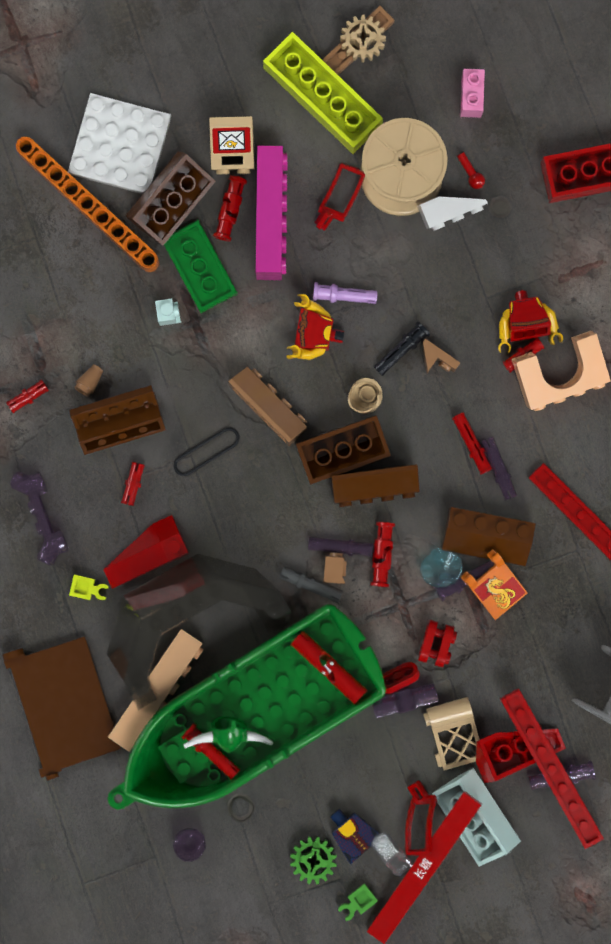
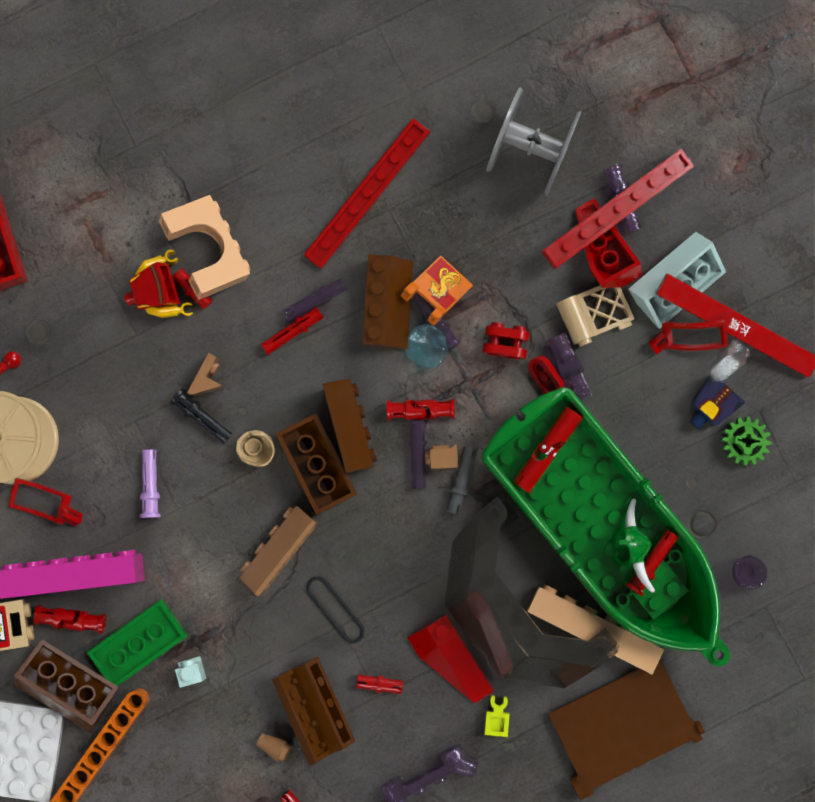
camera: 95 degrees left, 0 degrees up
(313, 331) = (192, 512): torso -> none
(360, 899) = (779, 387): bright green plate -> none
(445, 208) = (44, 386): white slope -> none

